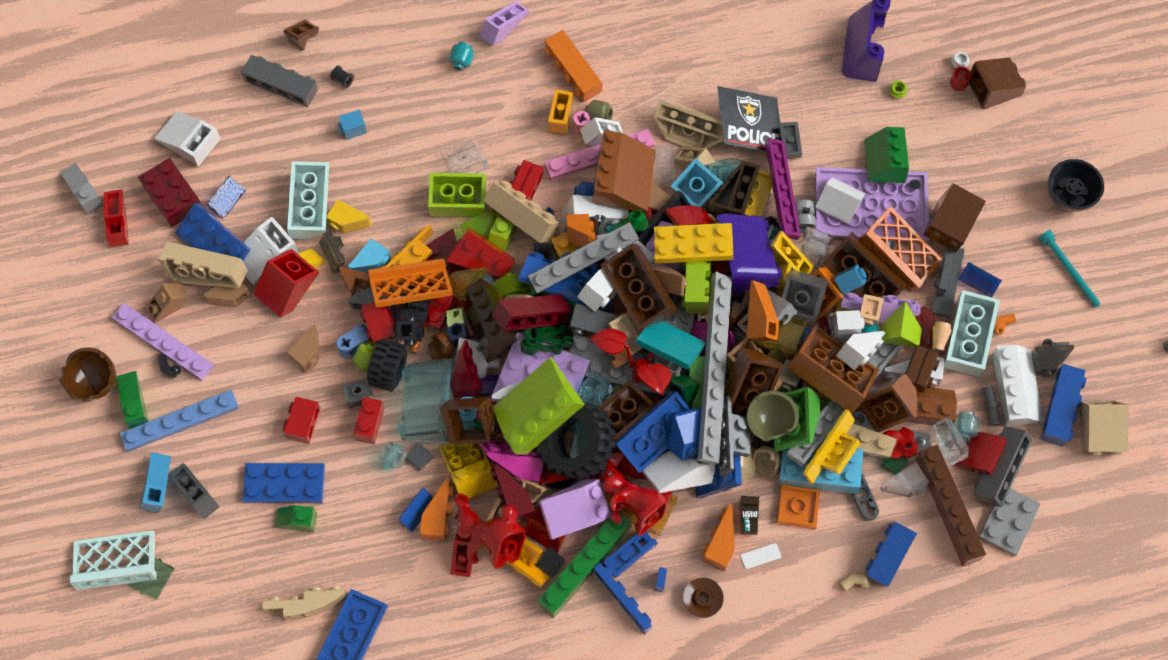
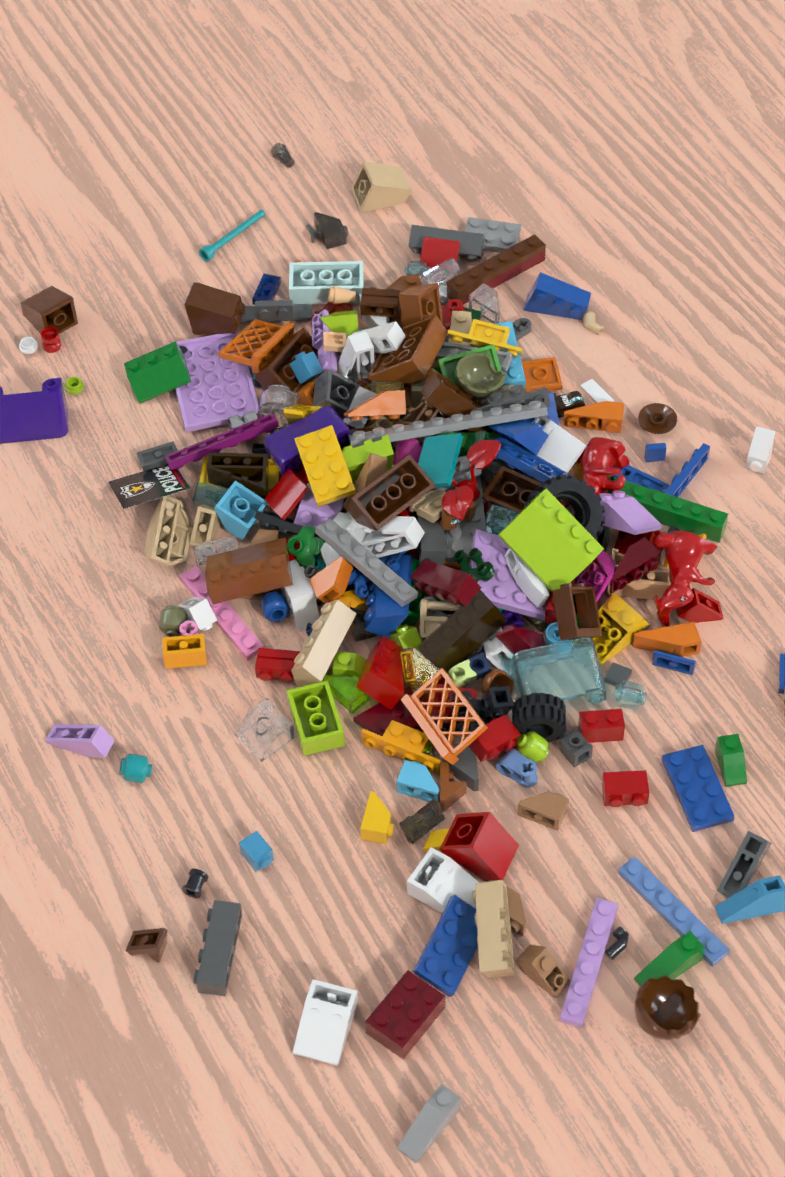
camera: 105 degrees left, 15 degrees down
(115, 218) = (457, 1067): red slope -> none
(226, 197) = (389, 957): clear blue slope -> none
(308, 199) = (369, 860): light aqua slope -> none
(573, 66) = (120, 659): orange brick -> none
(839, 200) = (218, 397): white slope -> none
(991, 406) = (389, 262): dark grey pin -> none
(1017, 386) = (369, 249): white slope -> none
(1063, 405) = (372, 215): blue brick -> none
(1075, 185) = (152, 234): black piece -> none

